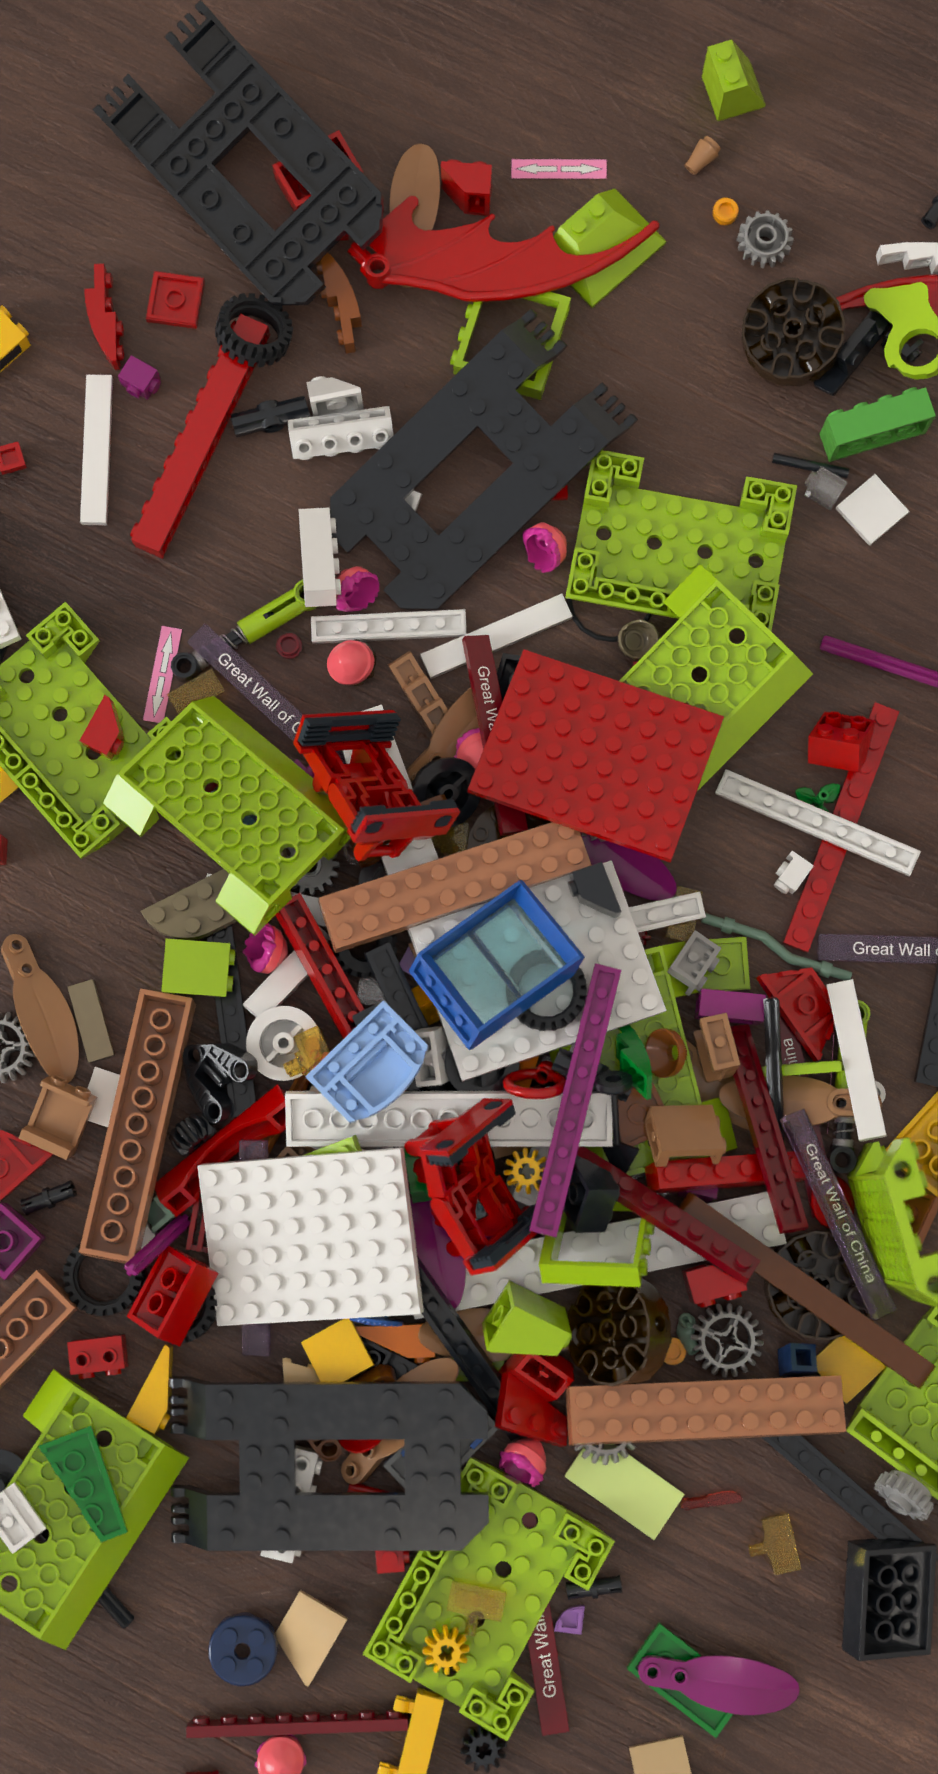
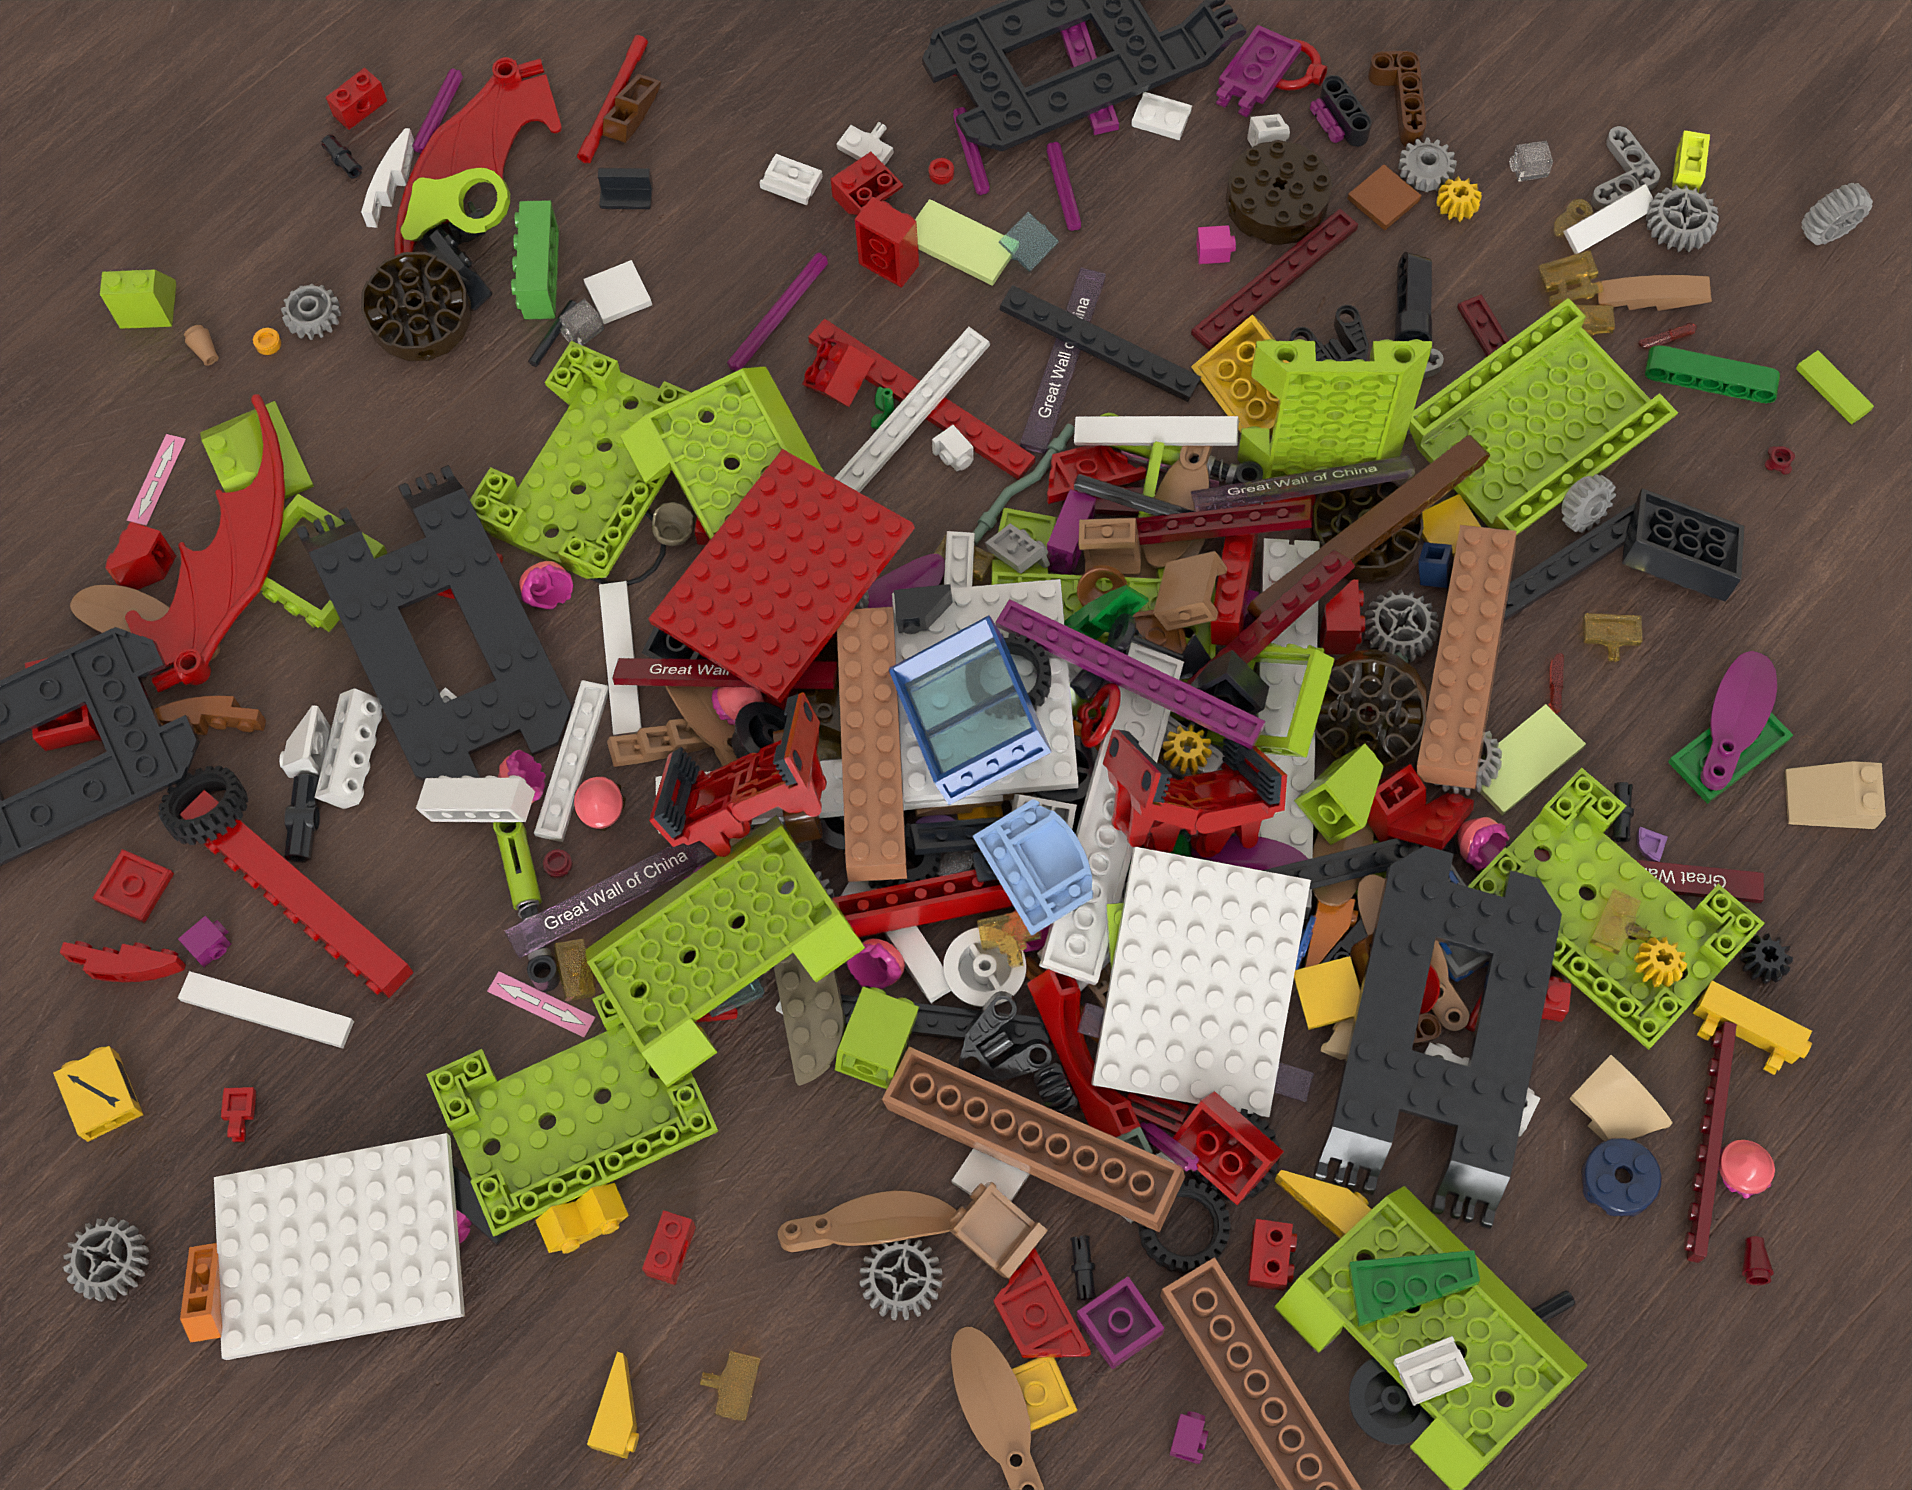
camera: 75 degrees left, 15 degrees down
(91, 1021) = (899, 1173): dark tan tile -> none
(104, 730) = (586, 1068): red slope -> none

